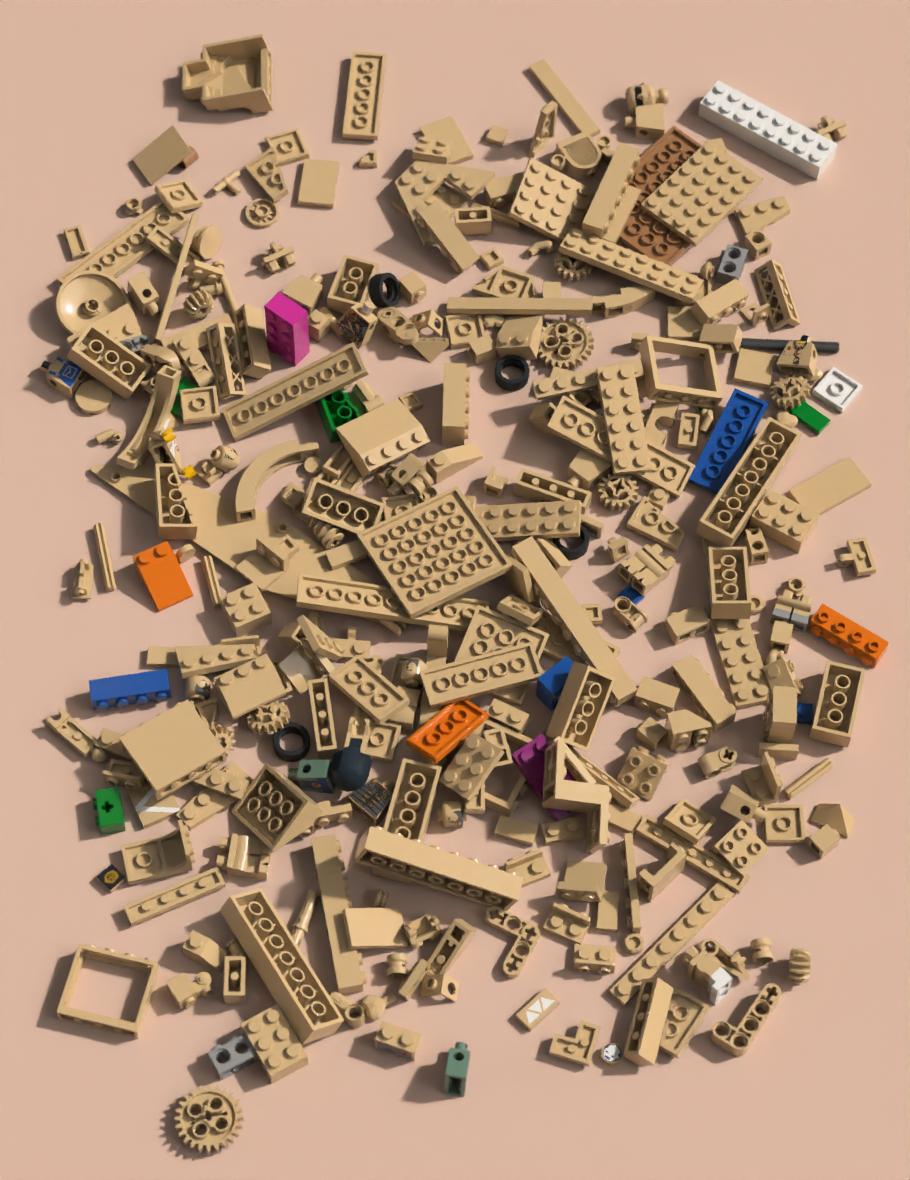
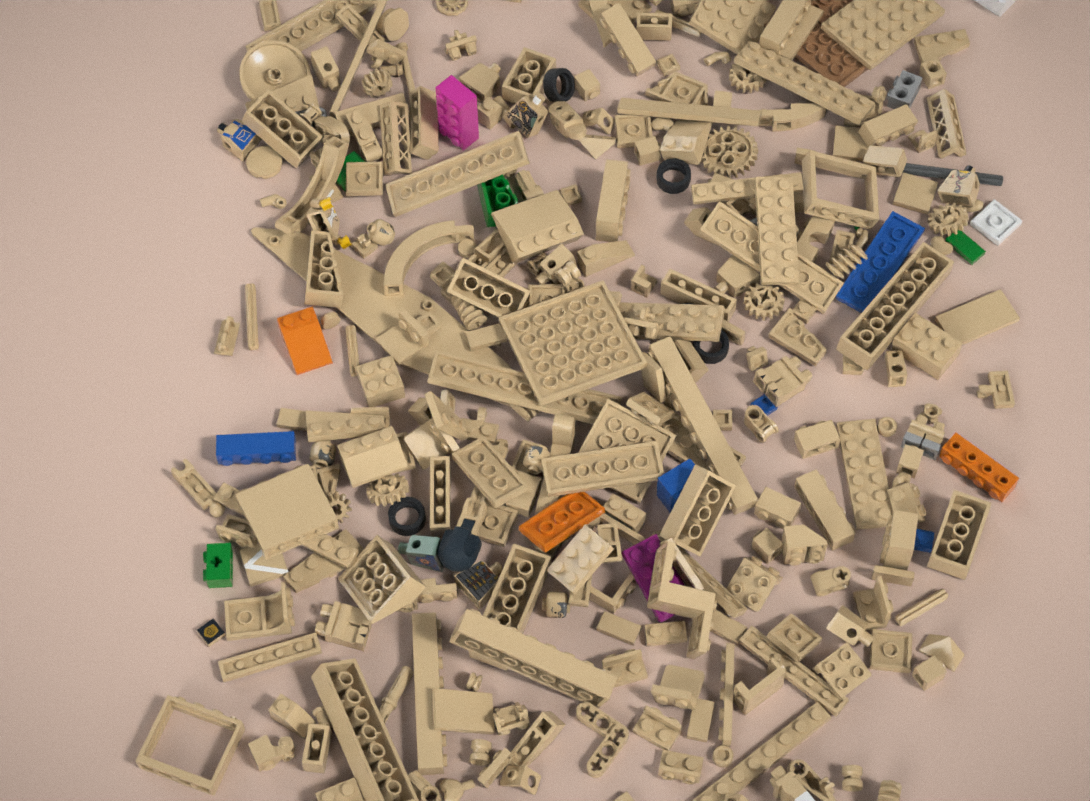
camera: 10 degrees right, 0 degrees up
(136, 342) = (311, 113): none -> tan bush
(511, 528) = (651, 327): none -> tan hips
(695, 443) = (846, 261): none -> tan piece
(729, 583) = (863, 402): tan brick -> none

